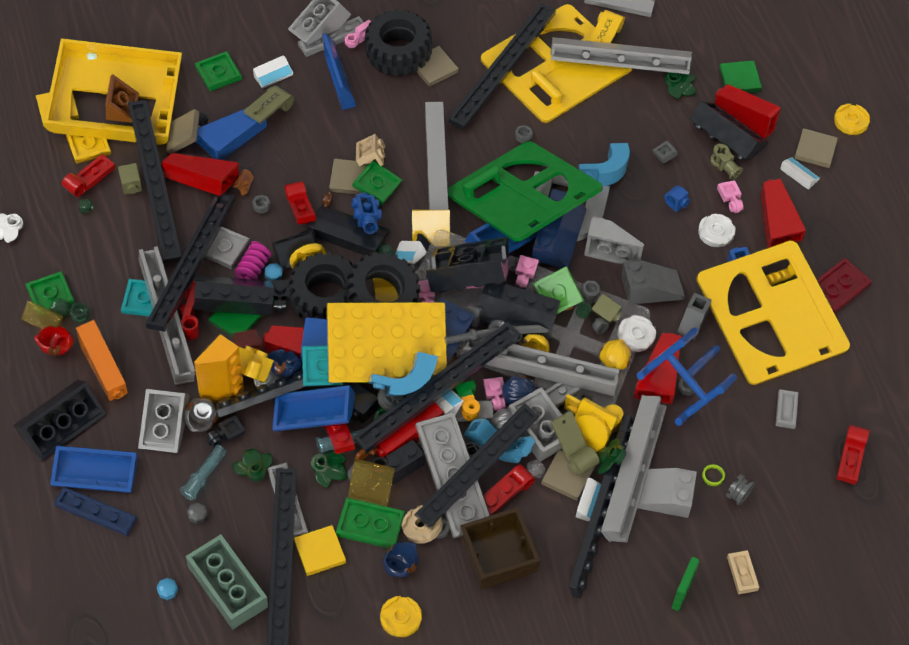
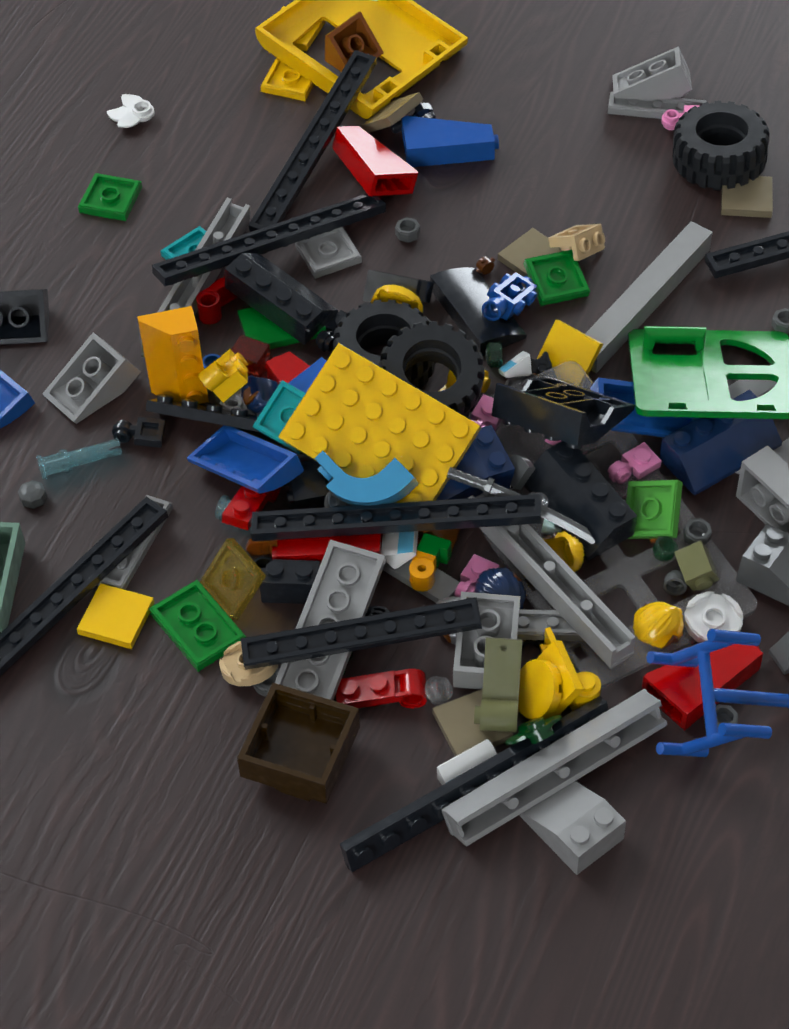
camera: 45 degrees right, 5 degrees down
(40, 316) = (76, 212): clear yellow tile -> none
(54, 340) = (63, 239): red hair -> none
(60, 307) = (102, 213): clear green tile -> none
(79, 312) = (118, 229): clear green tile -> none
(85, 205) = (225, 132): clear green hinge -> none
(89, 176) = (255, 108): red plate -> none
(101, 360) = (86, 283): orange slope -> none
(129, 178) = (292, 128): olive brick -> none
(200, 415) = (128, 396): flat silver hair -> none
(218, 71) = (494, 78): green tile -> none
(244, 181) = (412, 197): dark orange piece -> none
(252, 261) = (337, 279): dark pink piece -> none
(253, 465) = (137, 483): dark green plate -> none
(269, 103) = (523, 130): olive door -> none
(272, 72) = (552, 107): slope -> none
(273, 272) = (351, 301): dark azure tile -> none
(299, 203) = (453, 244): red plate -> none
(330, 470) = (208, 539): dark green plate -> none
(337, 73) = (620, 140): blue slope -> none
(400, 616) = (130, 746): yellow tile -> none
(401, 559) = (184, 682): dark blue hair -> none
(481, 430) = (427, 650): dark azure arch -> none
(685, 583) = (484, 942): green tile -> none
(715, 467) = (654, 860): lime piece -> none
(740, 489) = (669, 884): dark grey wheel -> none
(743, 572) = (580, 986): tan plate -> none

